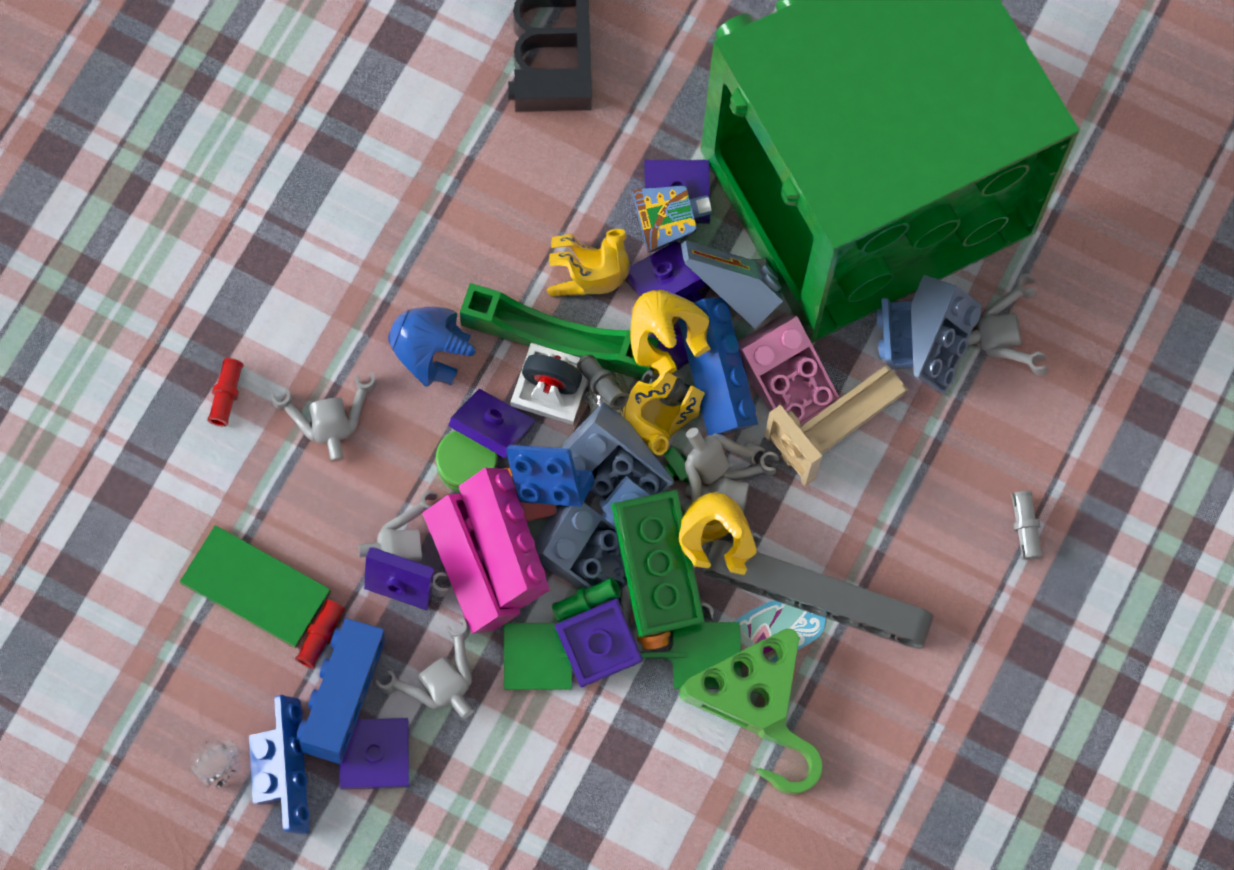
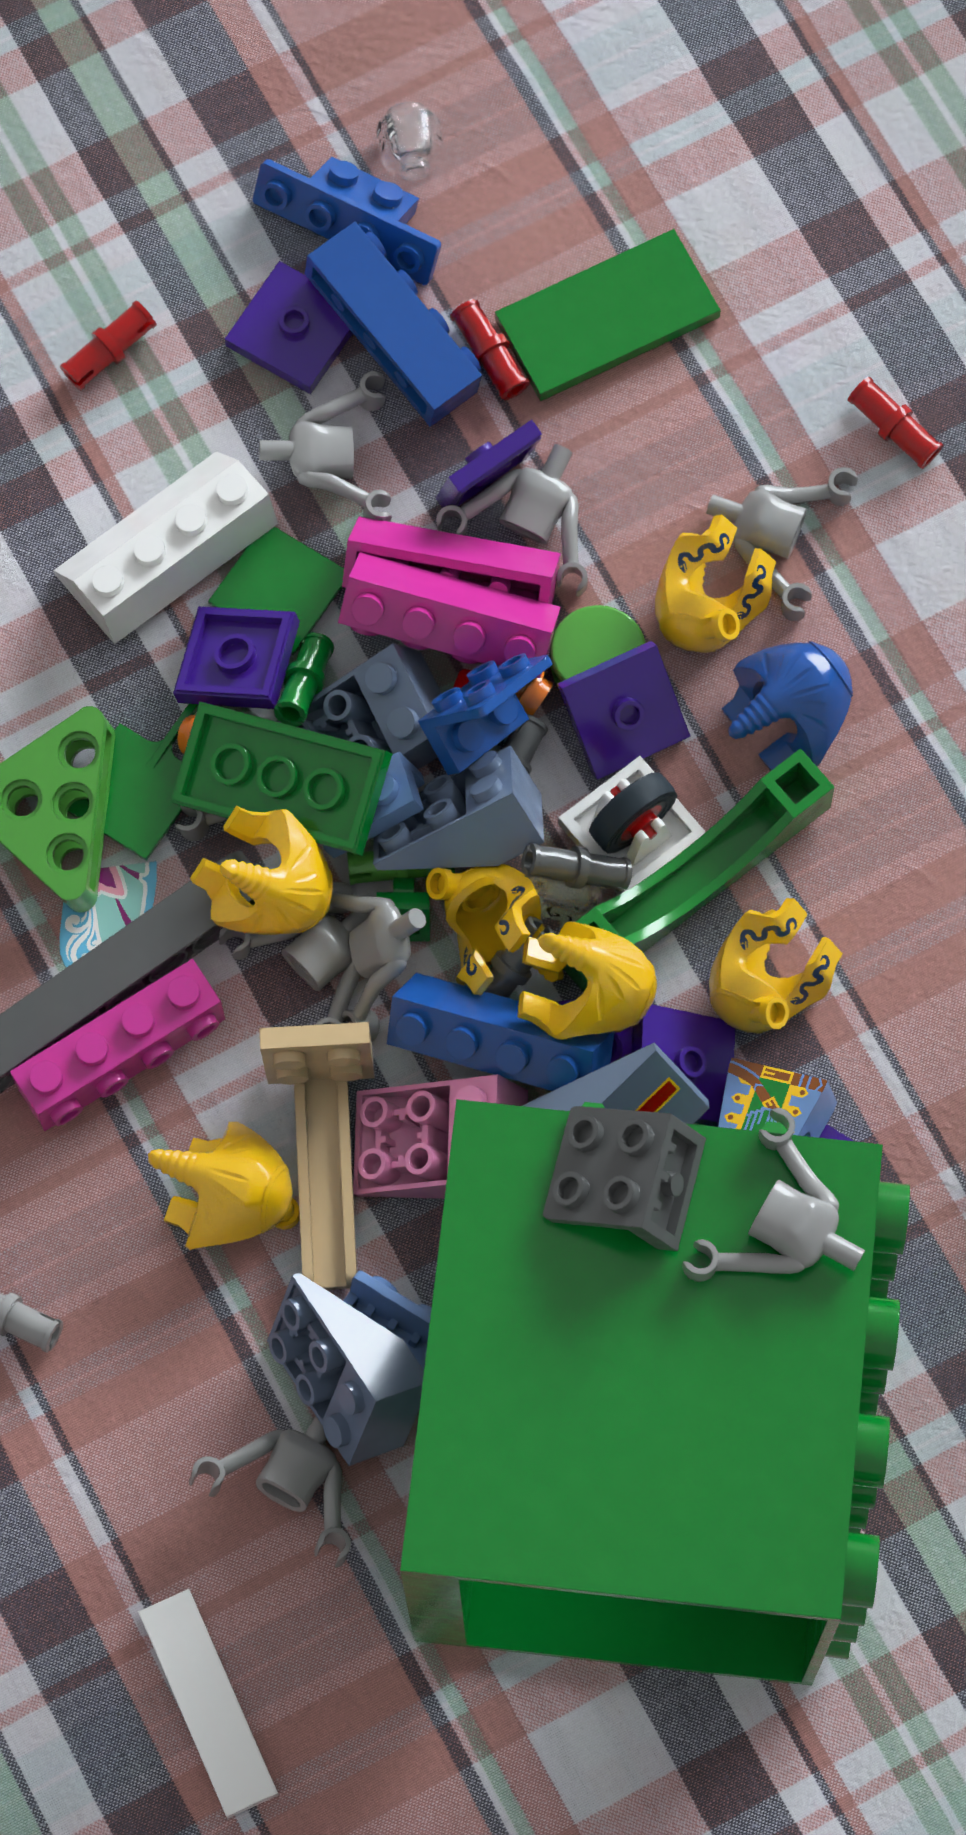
camera: 130 degrees right, 0 degrees up
(408, 421) = (691, 617): none -> yellow piece
(455, 848) = (108, 345): none -> red pin
(554, 732) = (168, 545): none -> white slope
(787, 55) = (789, 1221): none -> light grey piece
(821, 142) = (626, 1173): none -> dark grey bracket
(850, 560) = (119, 1045): none -> dark pink brick
(895, 446) = (239, 1186): none -> yellow piece
(1136, 305) = (208, 1703): none -> white tile

